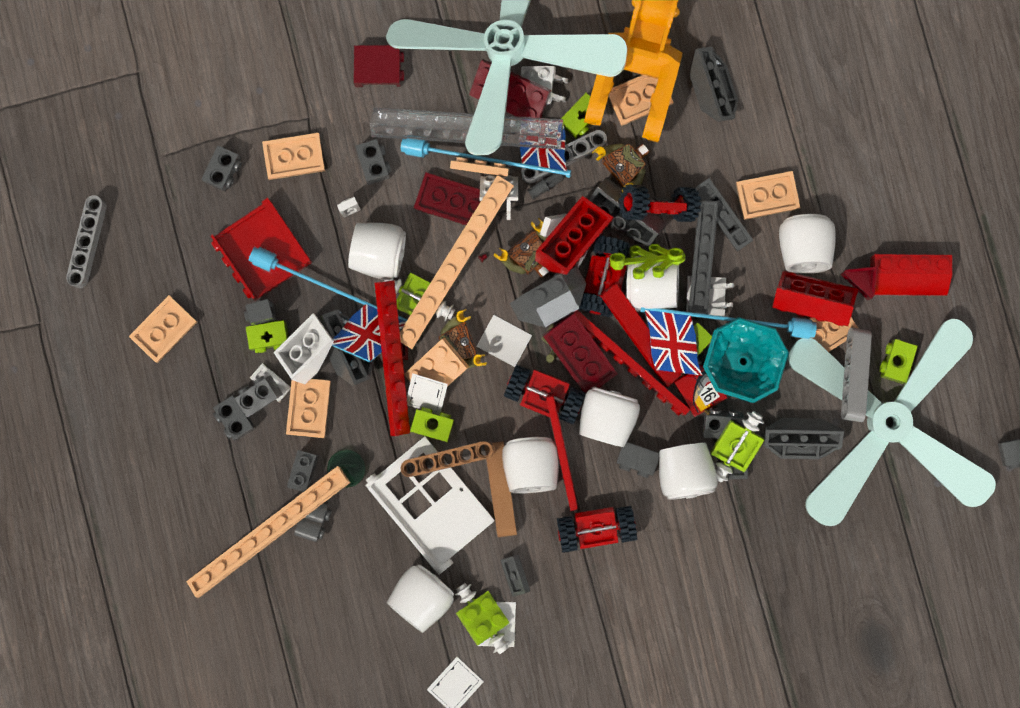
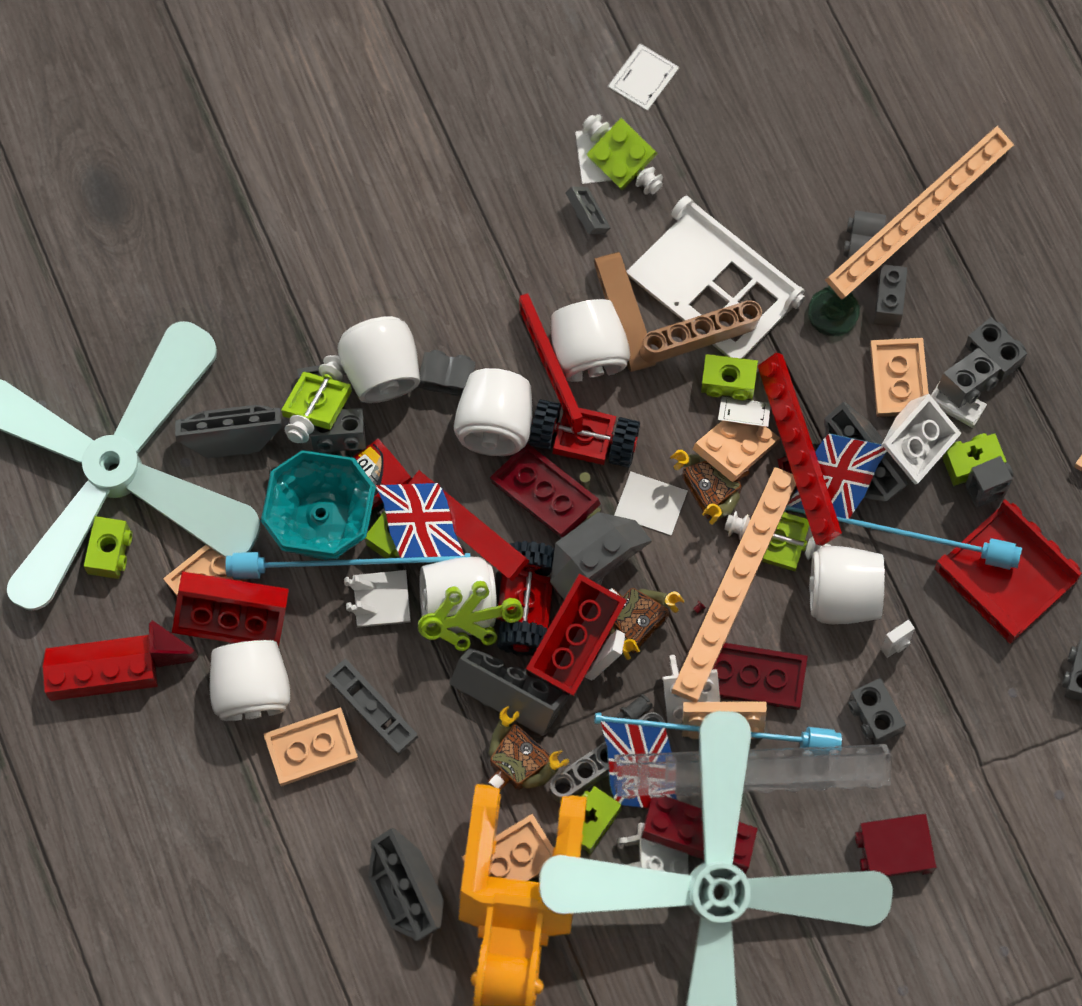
camera: 170 degrees right, 15 degrees down
(293, 156) = (990, 704): light nougat plate -> none
(420, 598) = (708, 159): white piece -> none
(596, 528) = (490, 277): plate -> none
(633, 367) = (468, 488): red plate -> none
(683, 206) = (493, 690): black plate -> none
(703, 257) = (392, 643): dark grey tile -> none
(856, 375) = (164, 513): light grey beam -> none

